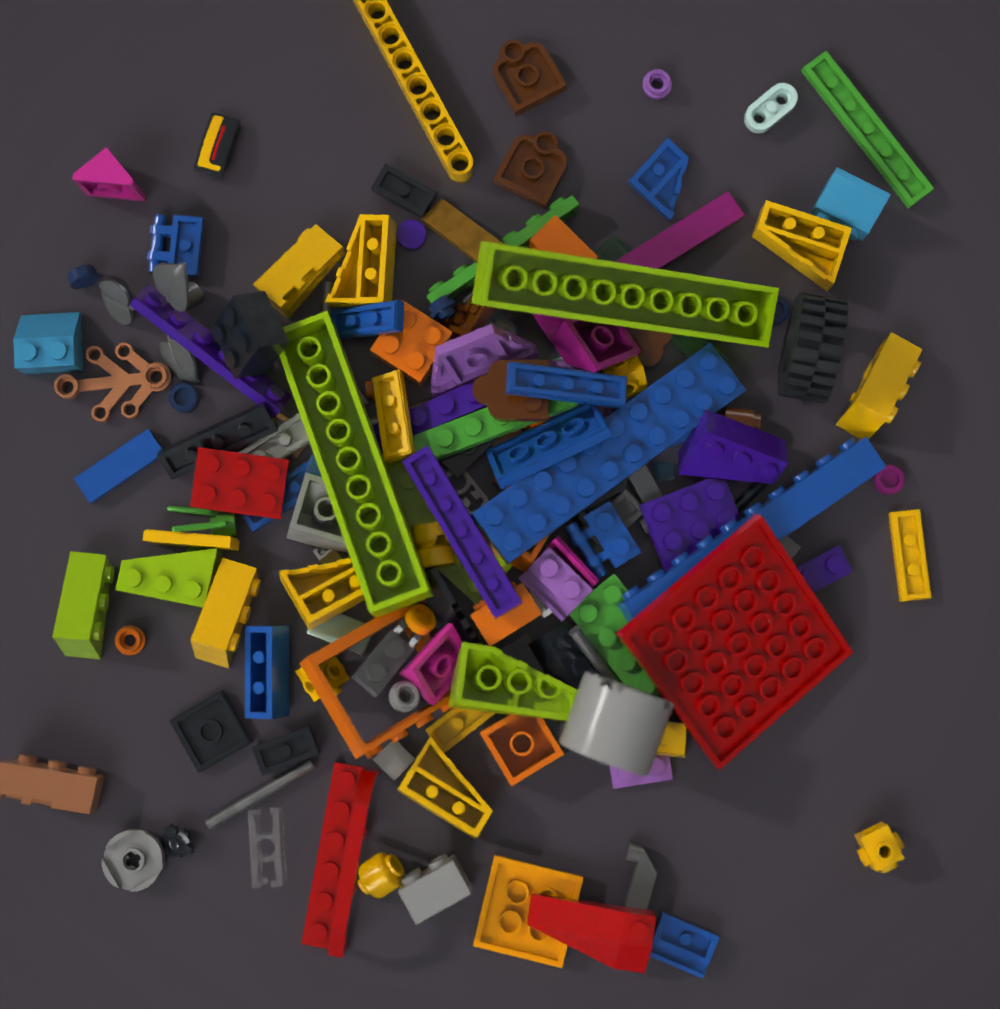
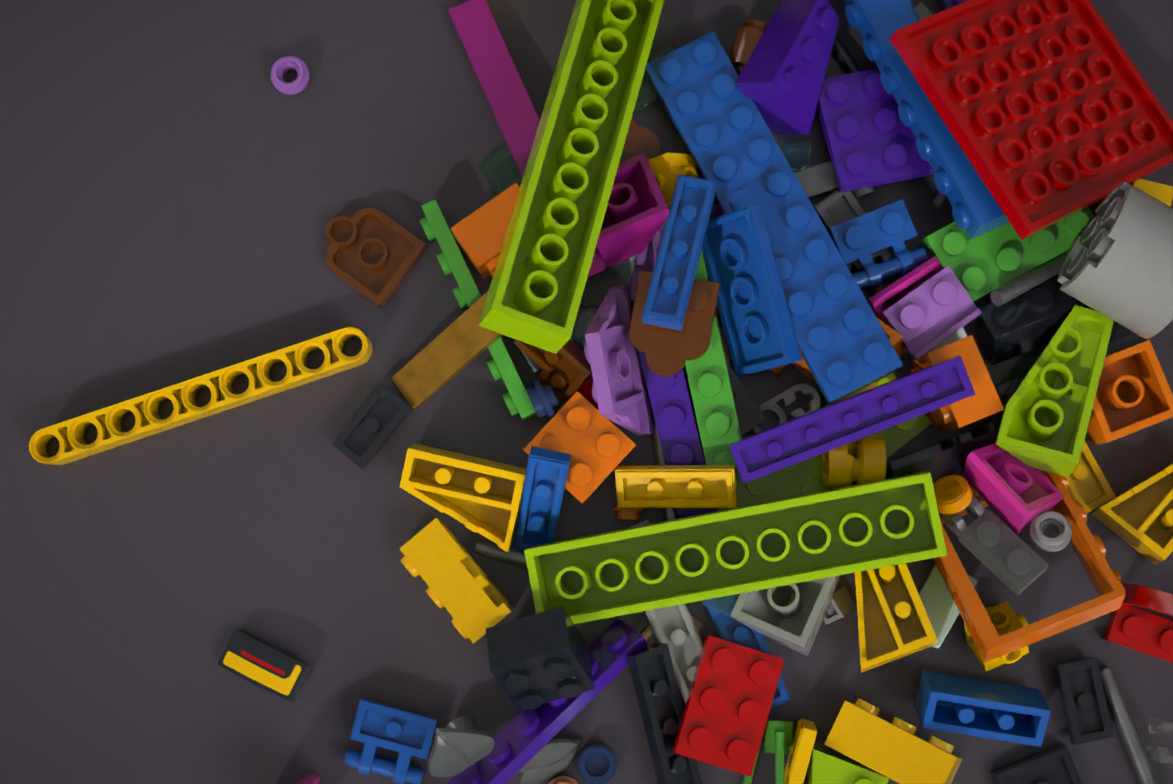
camera: 85 degrees left, 0 degrees up
(394, 759) = (1121, 557): light grey tile -> none
(411, 235) = (431, 426): dark purple tile -> none
(527, 75) = (246, 240): reddish brown plate -> none
(661, 178) = (415, 91): blue wing -> none

